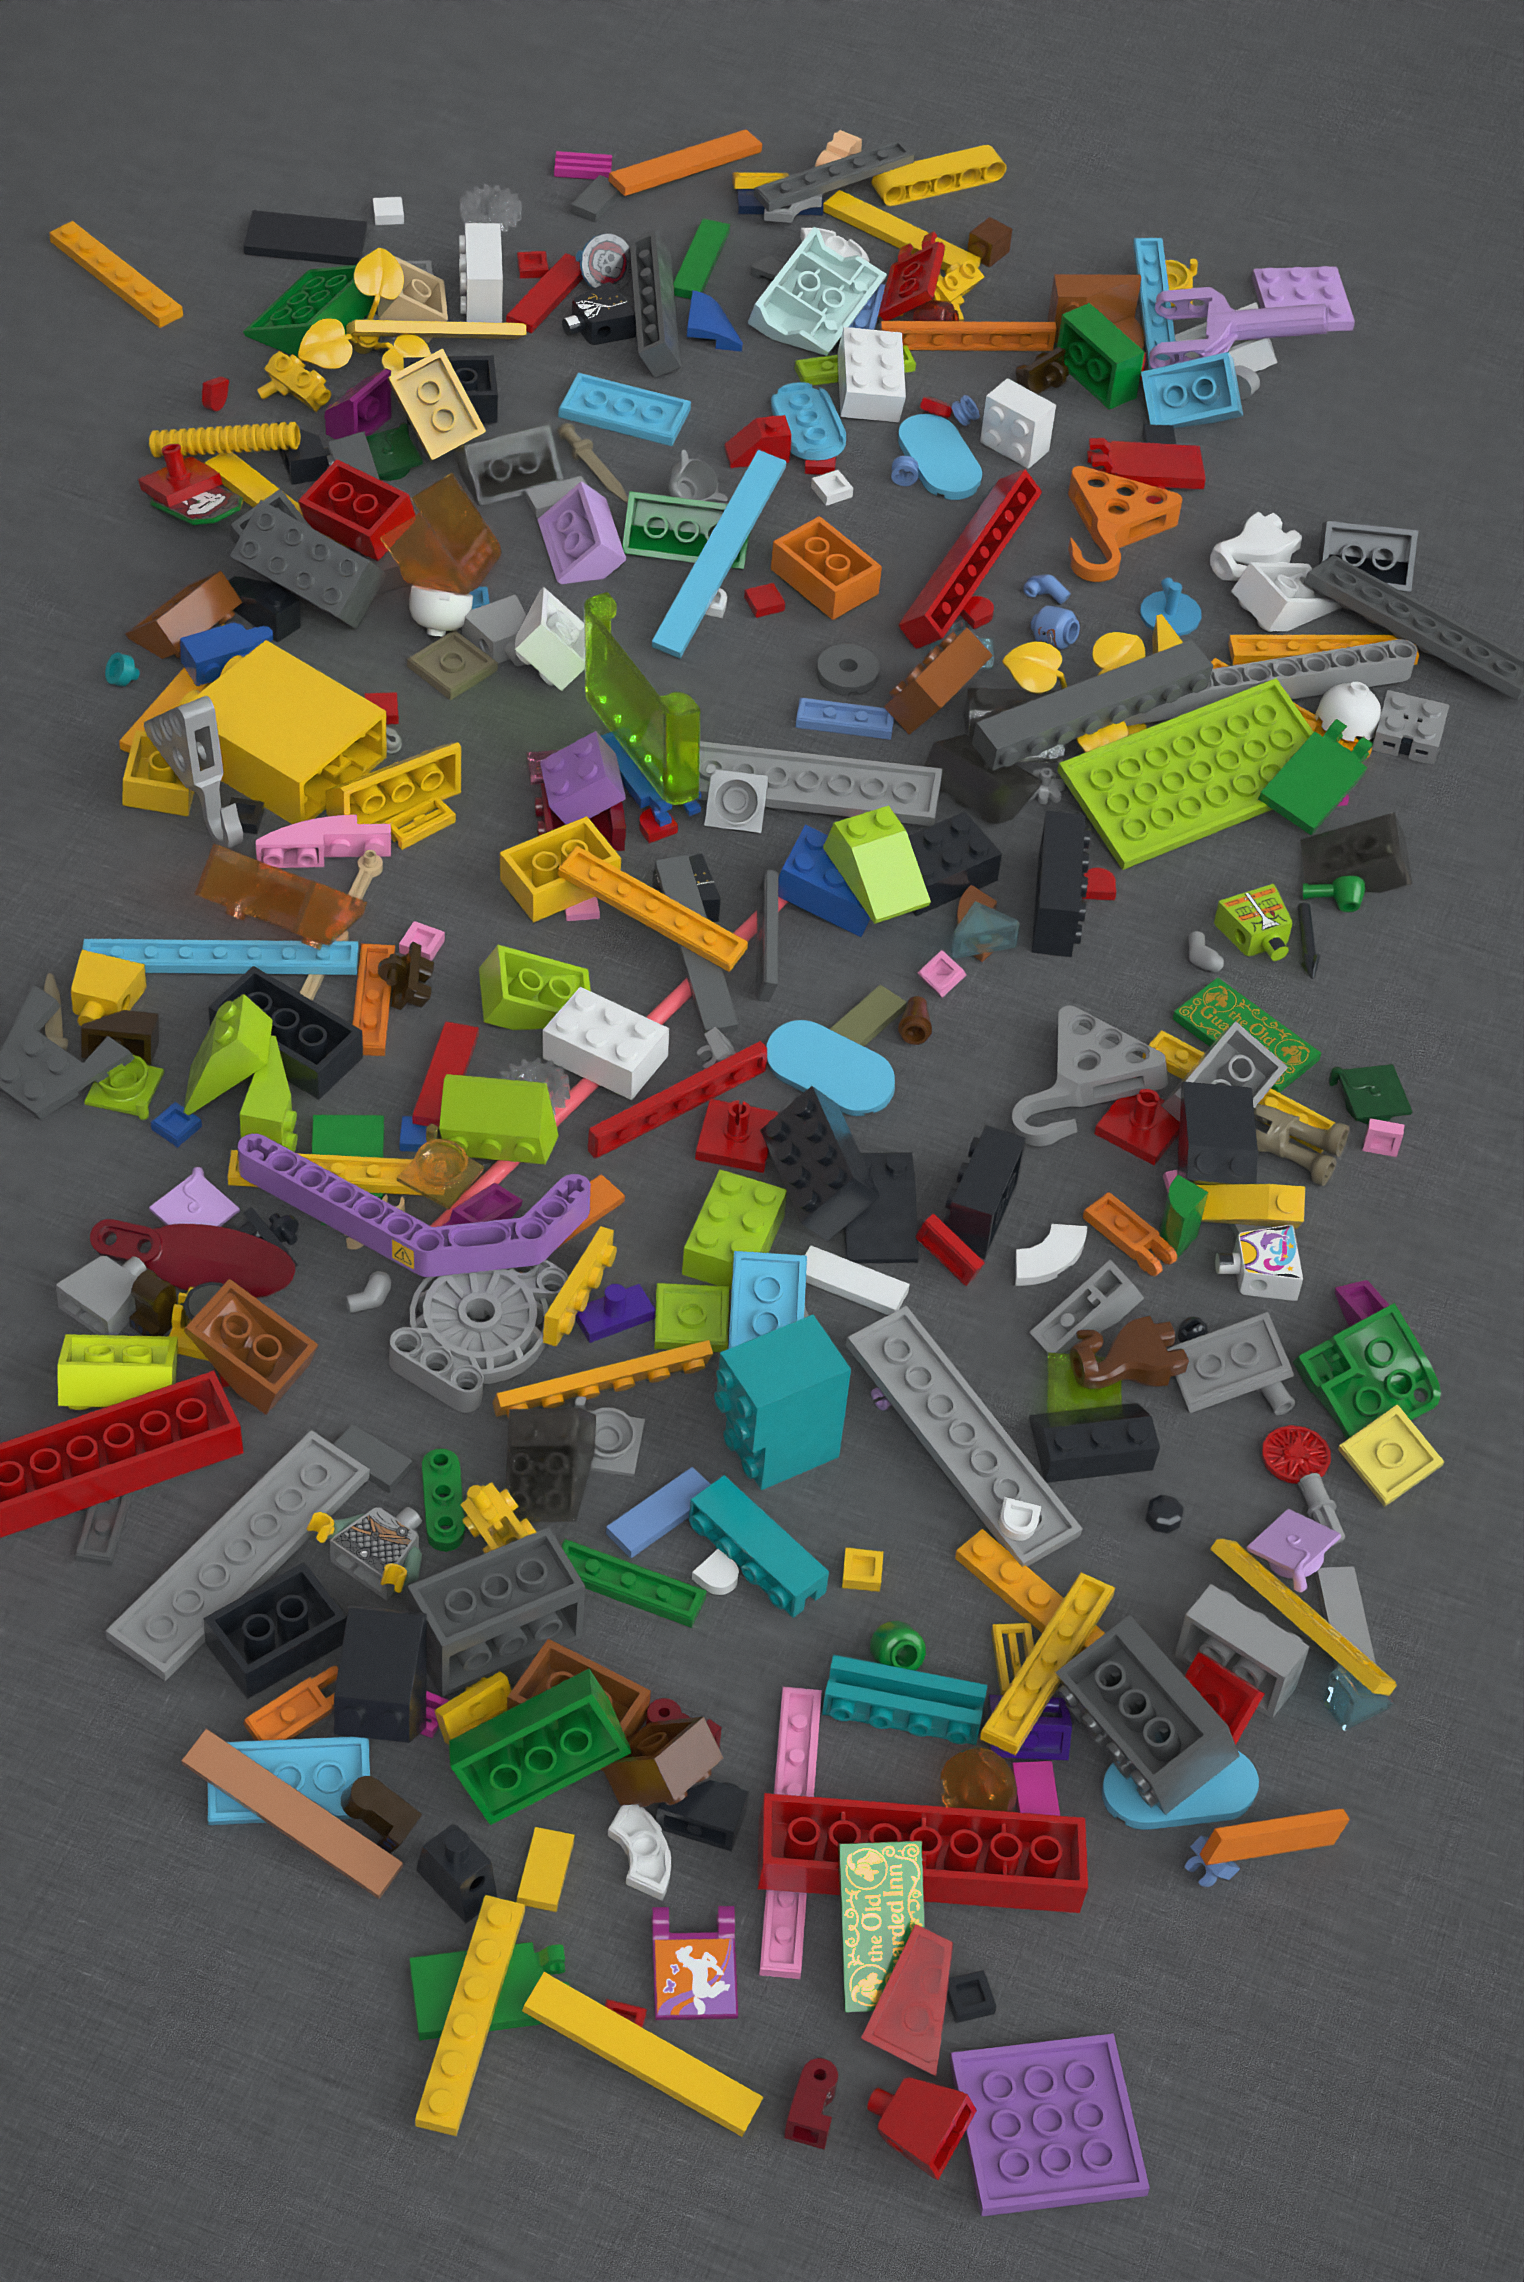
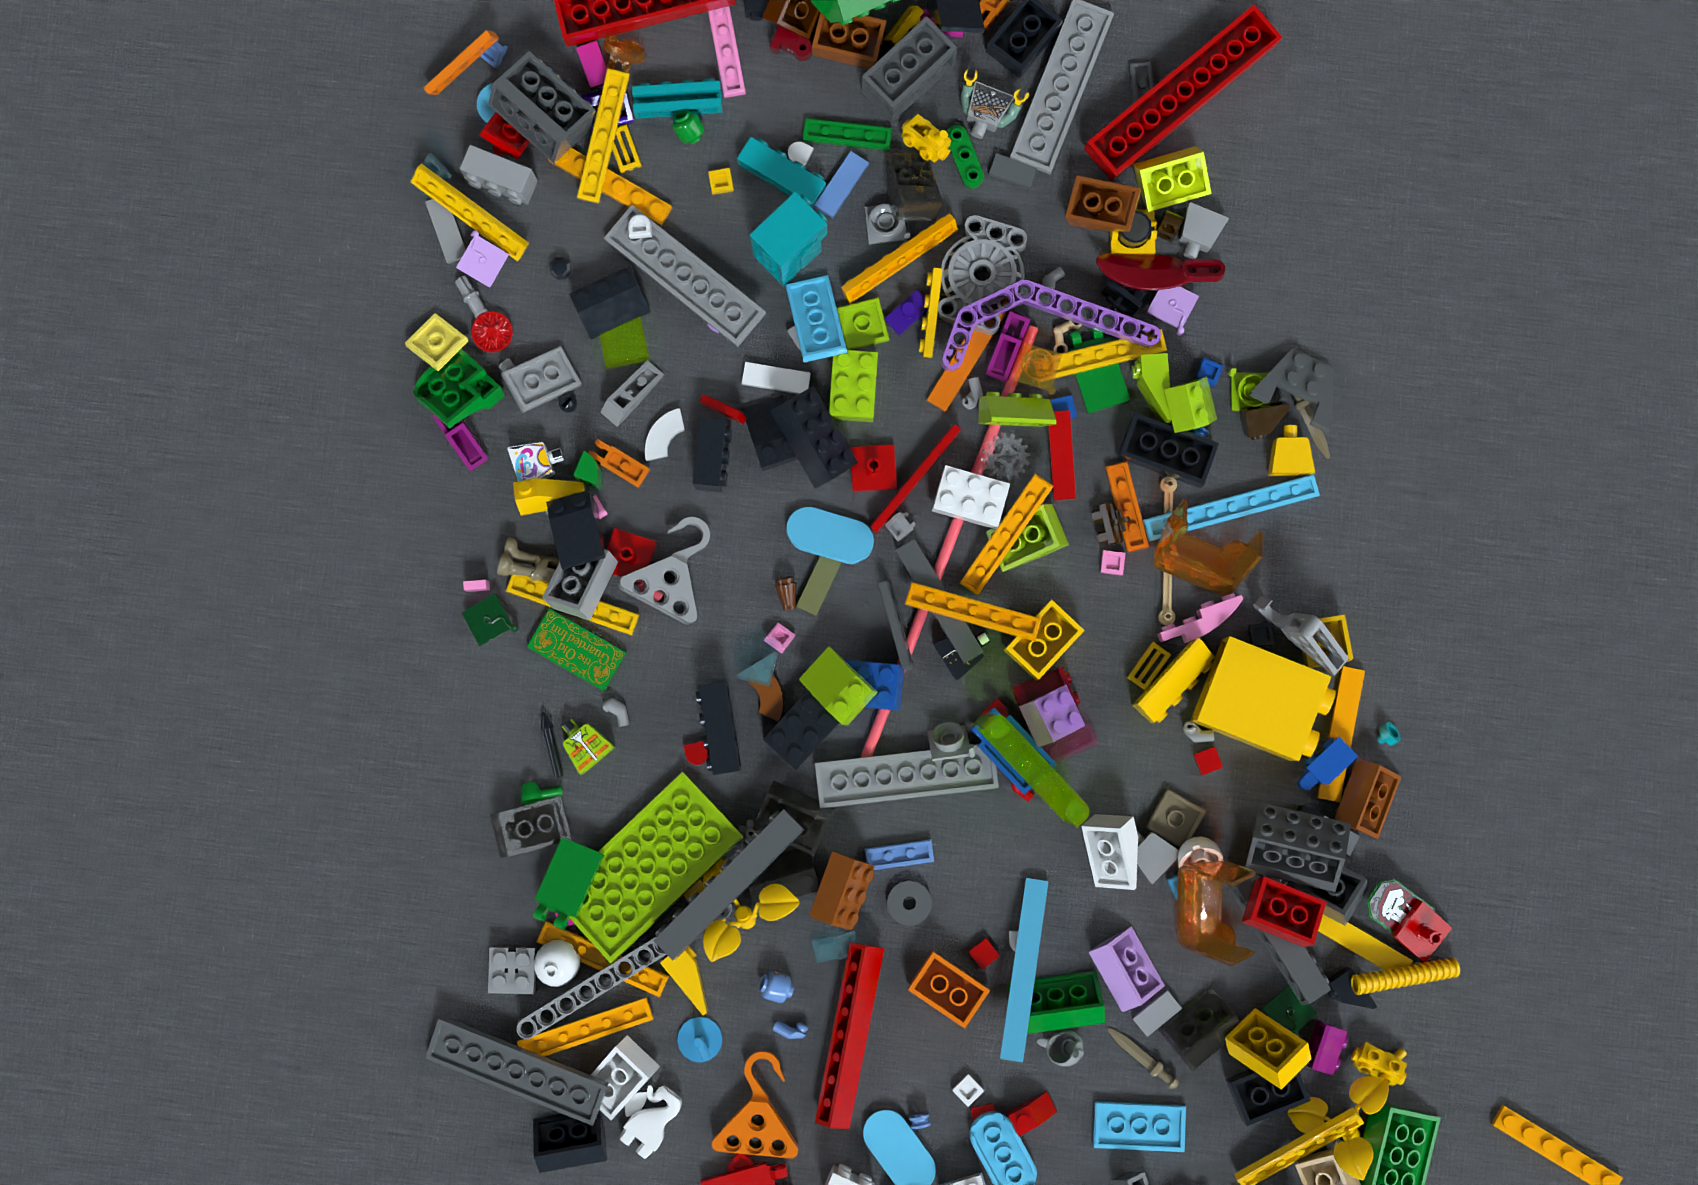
camera: 170 degrees right, 35 degrees up
(215, 393) = (1433, 1034): red tile -> none
(549, 1178) = (972, 398): none -> light grey arm
(553, 993) = (1006, 534): none -> light orange tile
(978, 611) = (832, 991): red tile -> none
(1134, 1355) = (598, 362): reddish brown hips -> none

